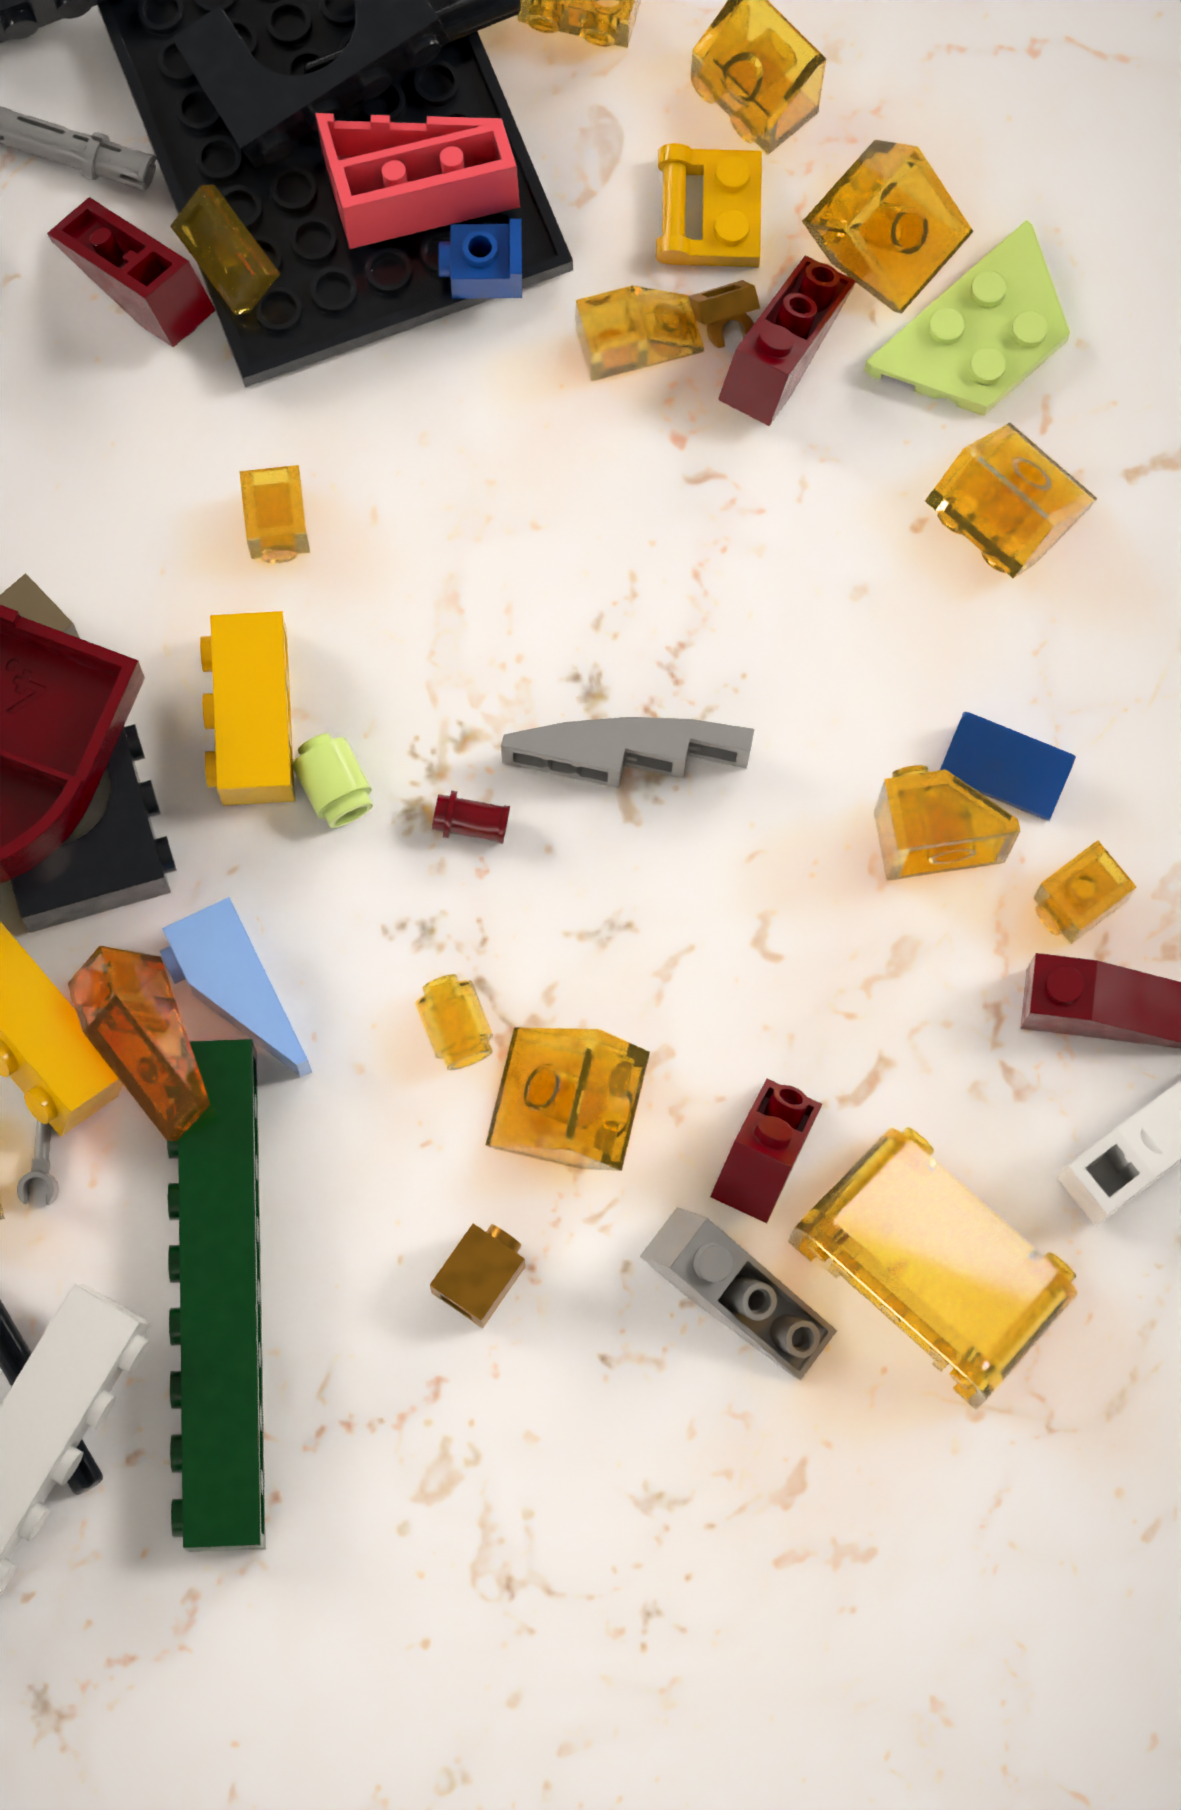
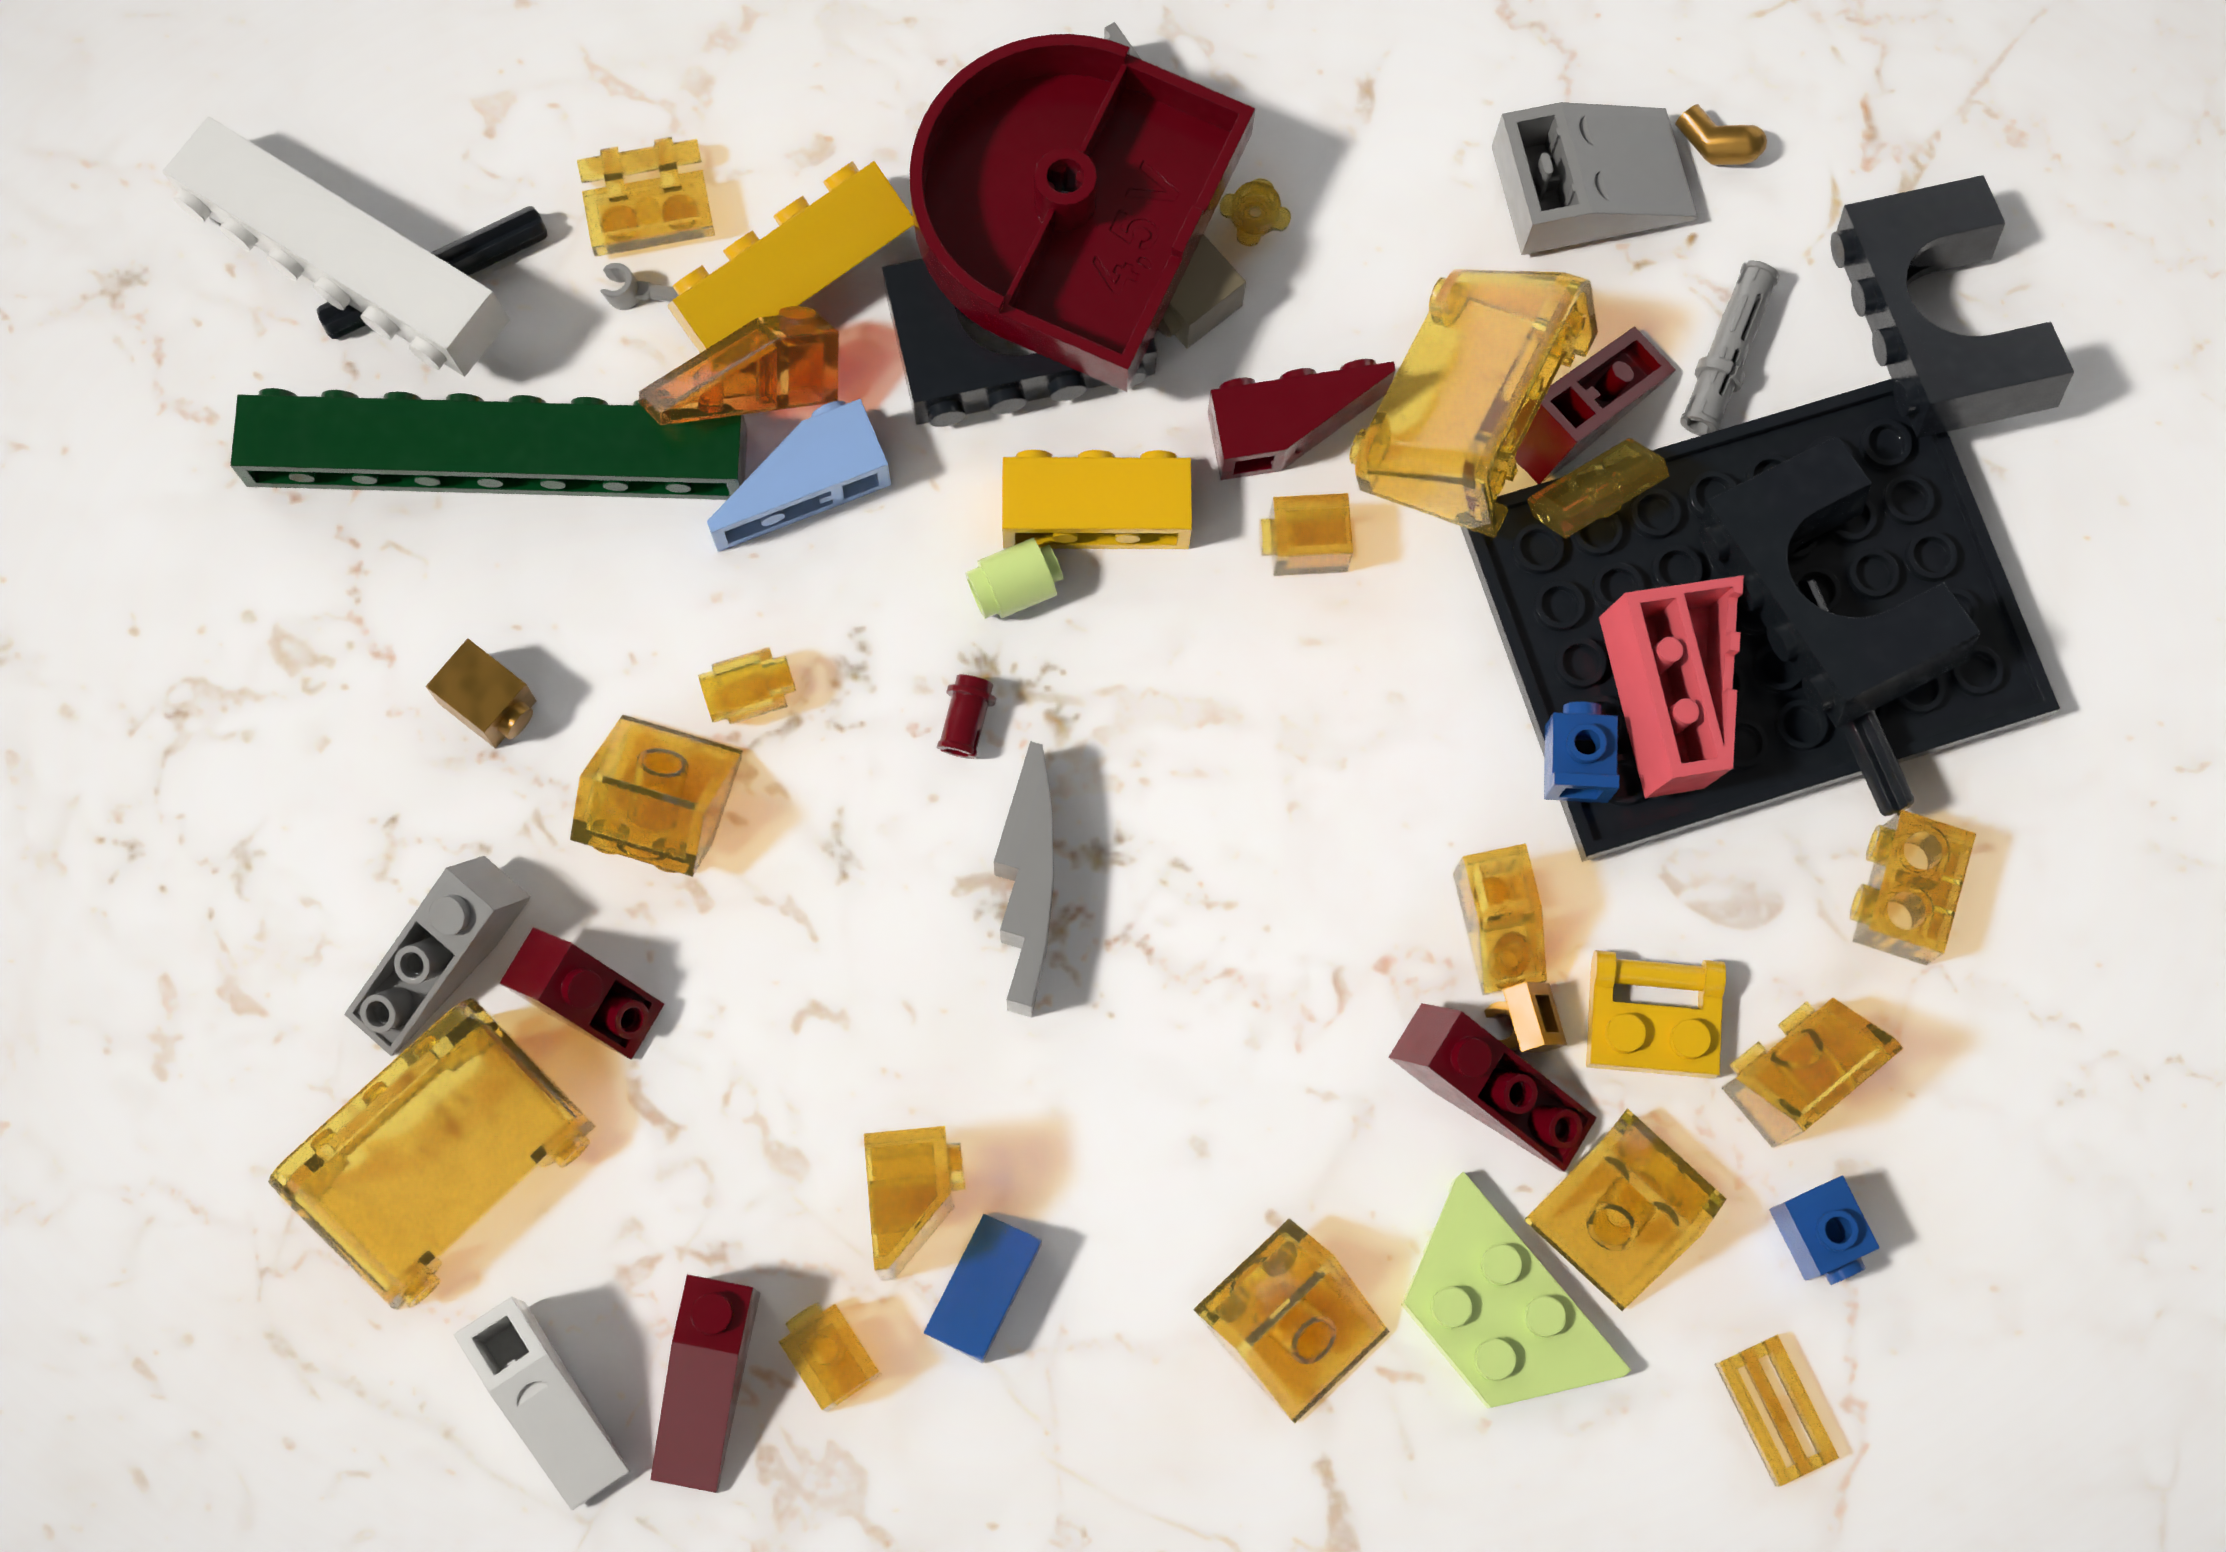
camera: 90 degrees right, 0 degrees up
(132, 360) = (1472, 391): none -> clear yellow windscreen
(163, 544) = (1277, 421): none -> dark red slope
(892, 63) = (1825, 1231): none -> blue brick
(1056, 125) = (1754, 1423): none -> clear yellow tile

